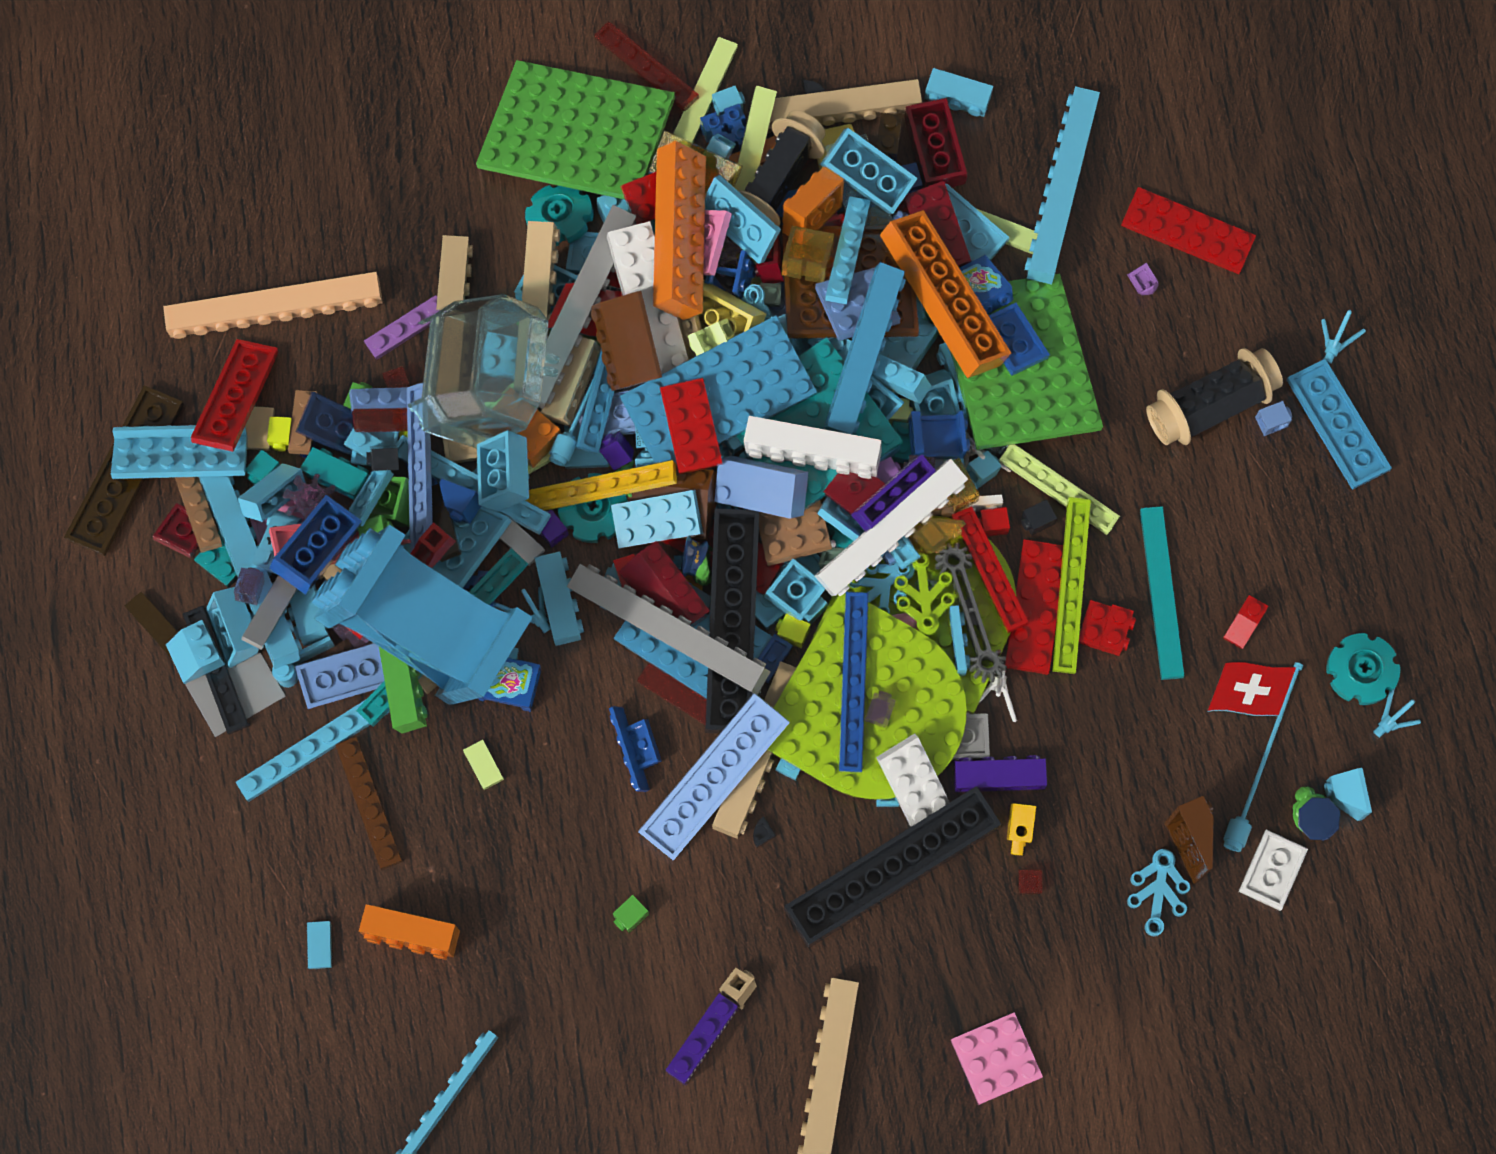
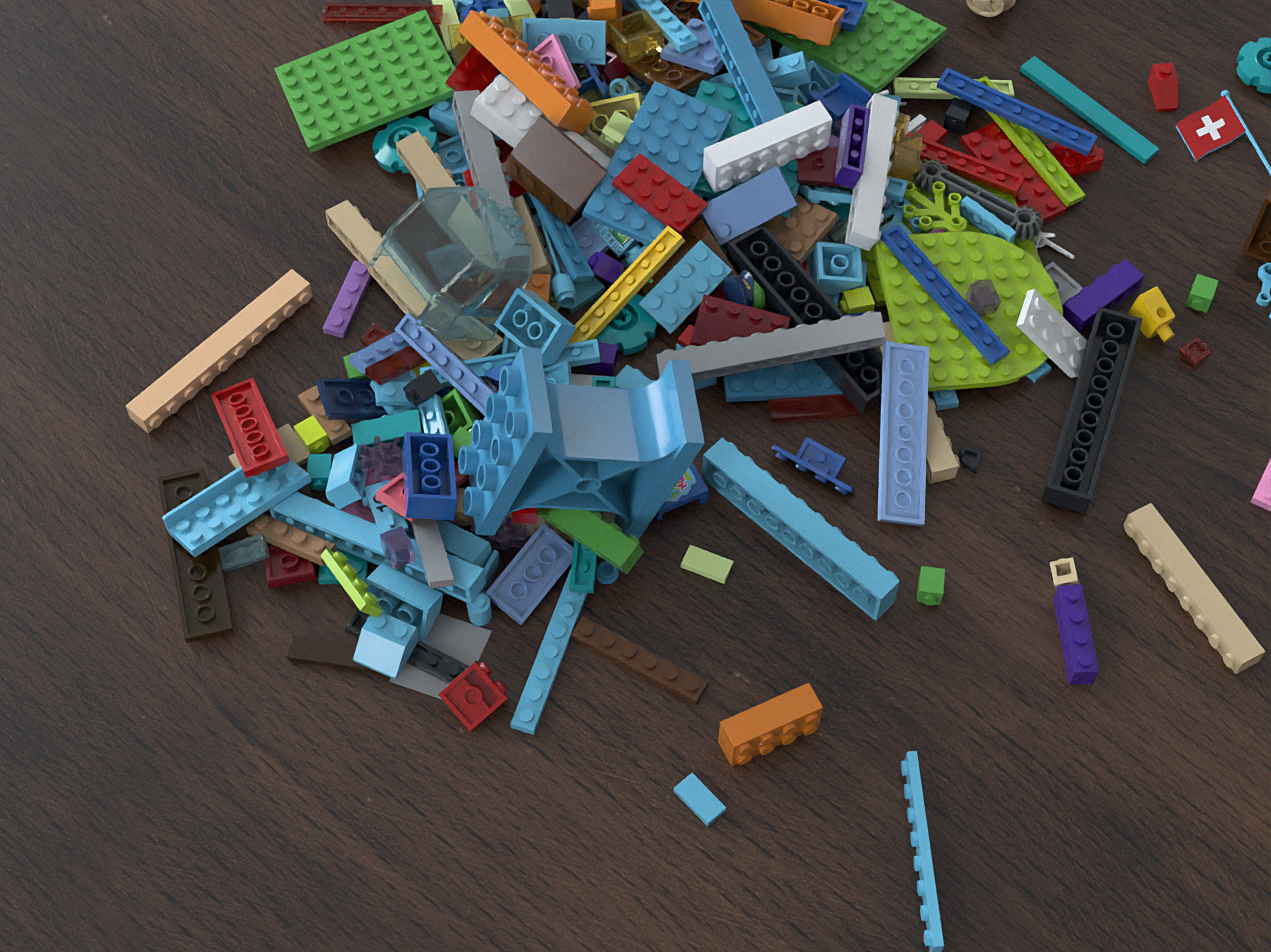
camera: 40 degrees left, 15 degrees down
(157, 497) = (243, 552): none -> clear light blue plate
(201, 587) = (351, 583): none -> lime plate
(225, 740) = (474, 694): none -> red plate
(568, 792) = (800, 529): none -> medium azure brick
(1080, 555) = (1017, 111): none -> blue plate
(1085, 836) = (1202, 293): none -> bright green brick

